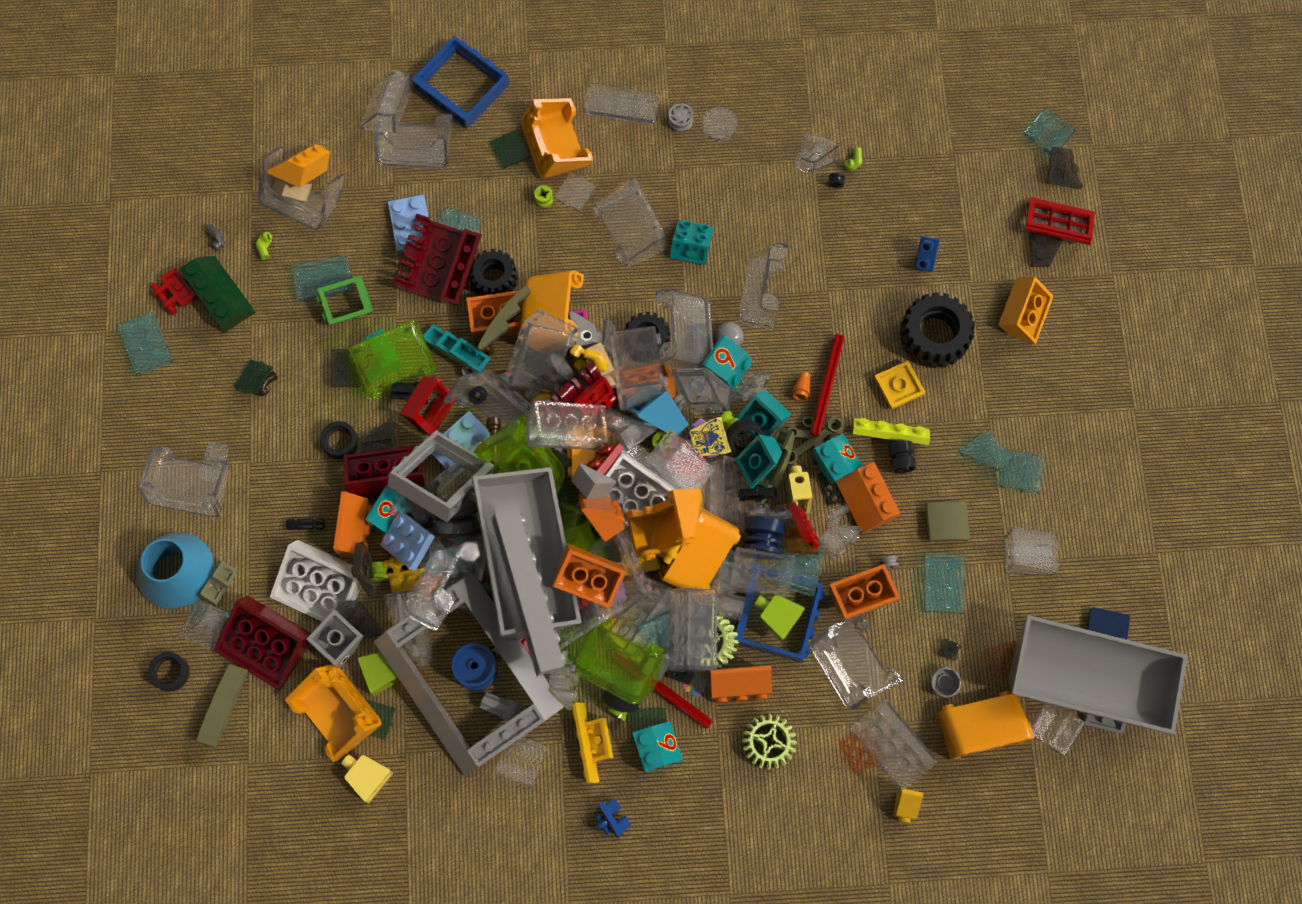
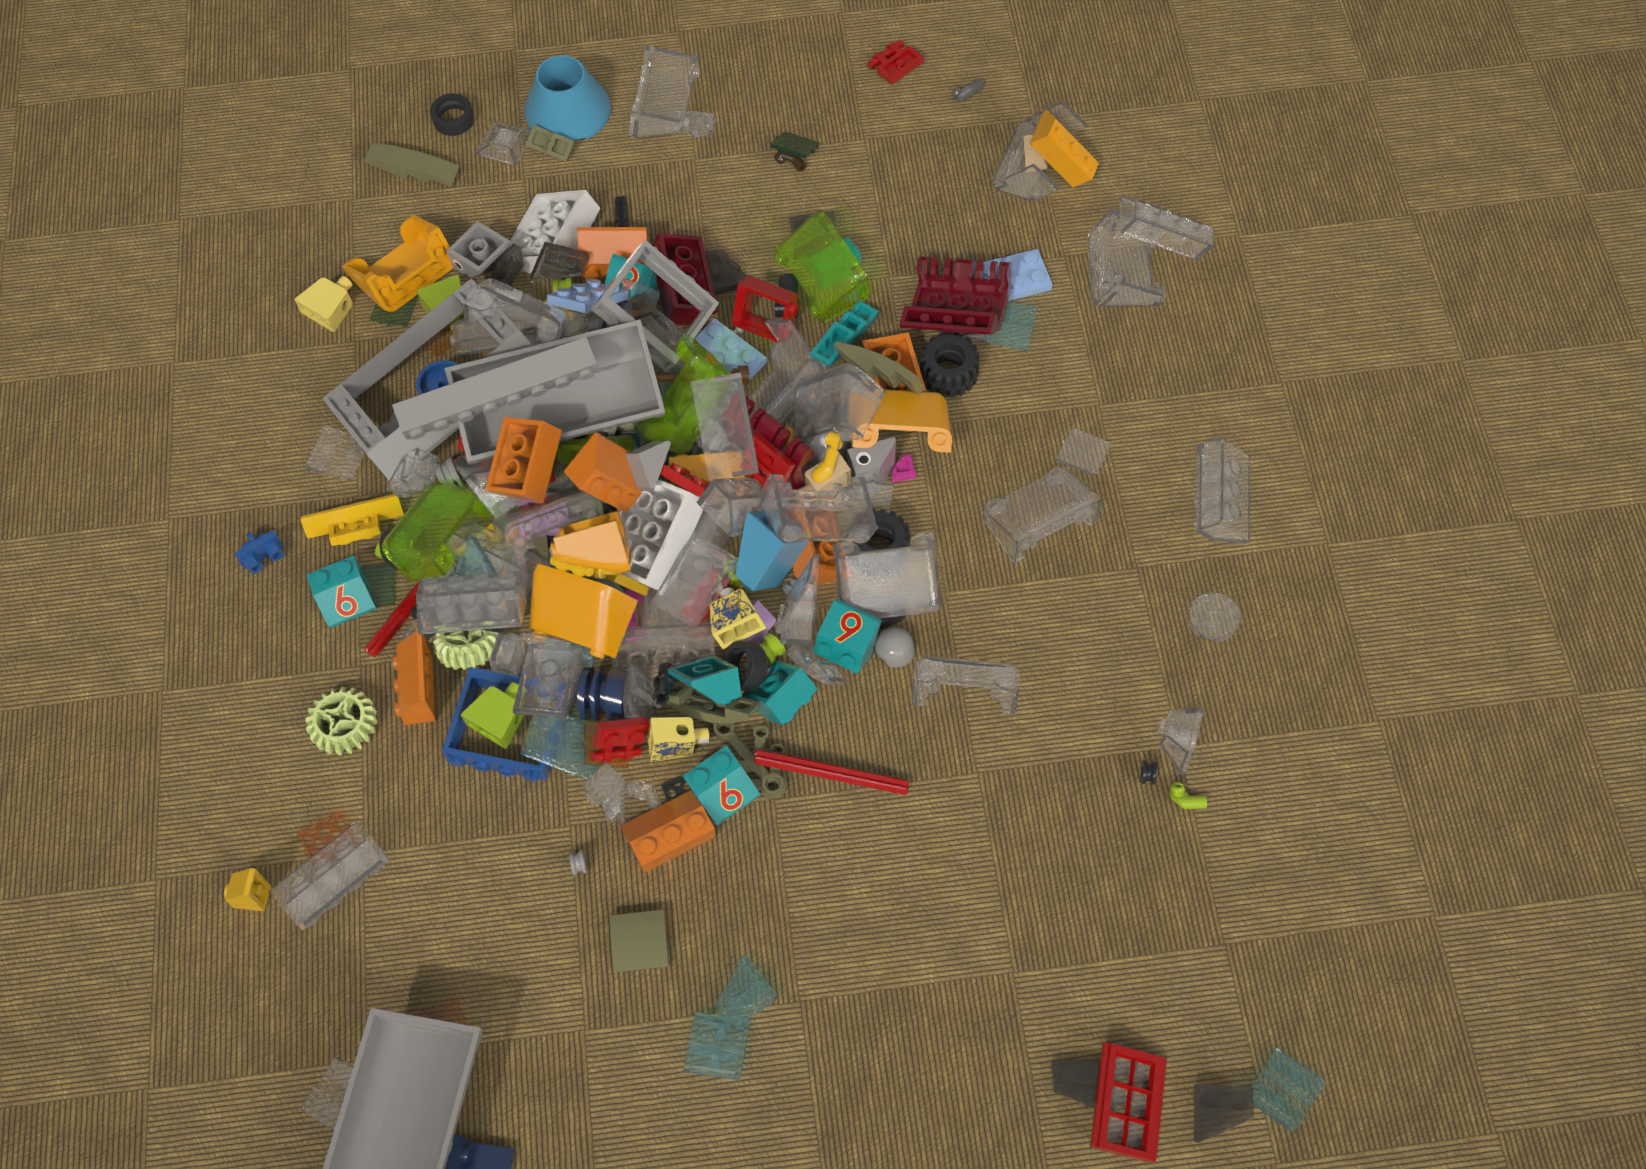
camera: 90 degrees right, 10 degrees down
(145, 343) = (830, 46): clear light blue plate -> none
(217, 291) = (897, 98): dark green slope -> none
(262, 245) = (965, 135): lime arm -> none
(262, 642) = (484, 190): dark red slope -> none
(321, 273) = (927, 196): clear light blue plate -> none
(327, 316) = (913, 228): bright green window -> none
(331, 428) = (724, 220): black tyre -> none
(443, 55) = (1233, 275): blue window -> none
(483, 395) = (786, 362): black bush -> none
(510, 149) = (1133, 373): clear green piece -> none
(542, 200) = (1068, 419): lime wheel -> none
(552, 137) = (1156, 417): light orange windscreen -> none
(680, 117) = (1213, 566): light grey wheel -> none
(691, 242) = (1028, 588): teal bracket -> none
(801, 389) = (826, 740): orange cone -> none
(852, 662) = (440, 822): clear windscreen -> none
(863, 592) = (529, 823): orange slope -> none
(891, 431) = (767, 859): neon yellow plate -> none
(899, 385) = (838, 869): yellow plate -> none
(902, 456) = (729, 873): black wheel -> none
(927, 253) = (1045, 899): blue hips -> none
(943, 583) = (549, 937): clear light blue plate -> none
(946, 682) = (407, 939): light grey hair -> none
(947, 310) = (927, 879): black tyre -> none
(955, 646) = (457, 940): clear smoke plate -> none
(984, 725) = (339, 989): light orange windscreen -> none
(1026, 309) = (972, 1050): light orange slope -> none
(1031, 552) = (590, 1054): clear slope -> none

